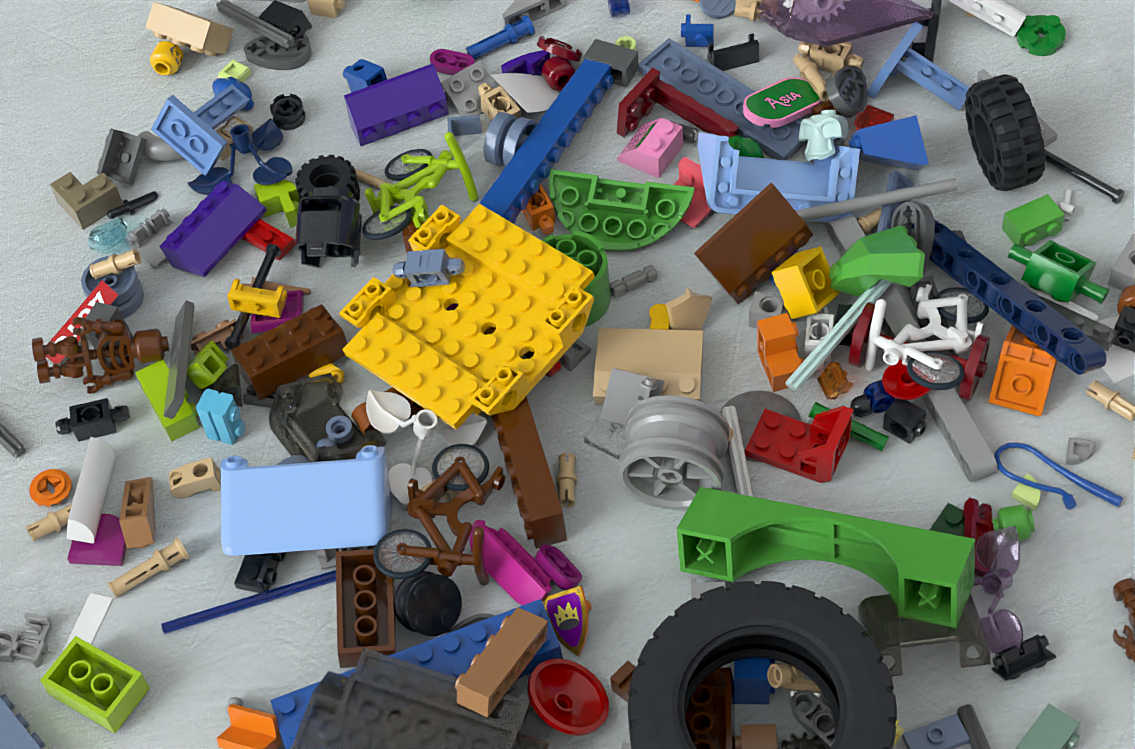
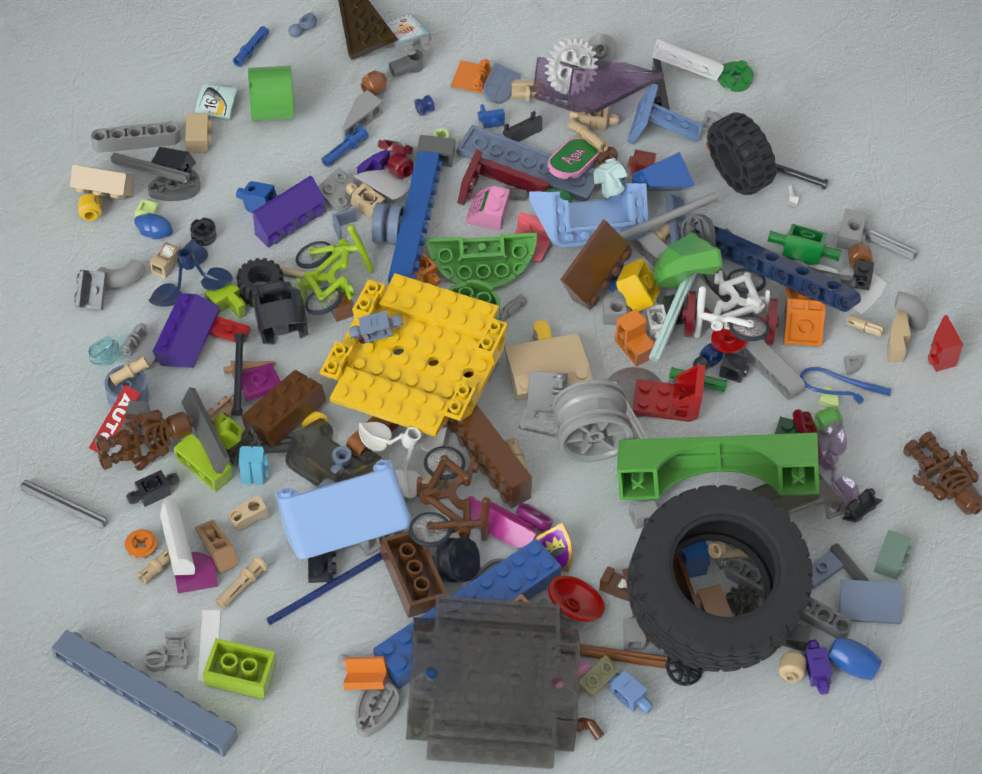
camera: 25 degrees left, 0 degrees up
(88, 201) = (73, 330): dark tan brick -> none
(128, 207) = (109, 327): black piece -> none
(194, 132) = (145, 259): medium blue piece -> none
(256, 300) = (246, 376): yellow hinge -> none
(450, 61) = (318, 171): magenta plate -> none
(501, 661) = (532, 582): medium nougat brick -> none
(688, 311) = (562, 322): tan slope -> none
(834, 381) = (676, 350): clear orange tile -> none
(850, 81) = (617, 141): dark grey piece -> none
(1033, 221) = (774, 212): bright green brick -> none

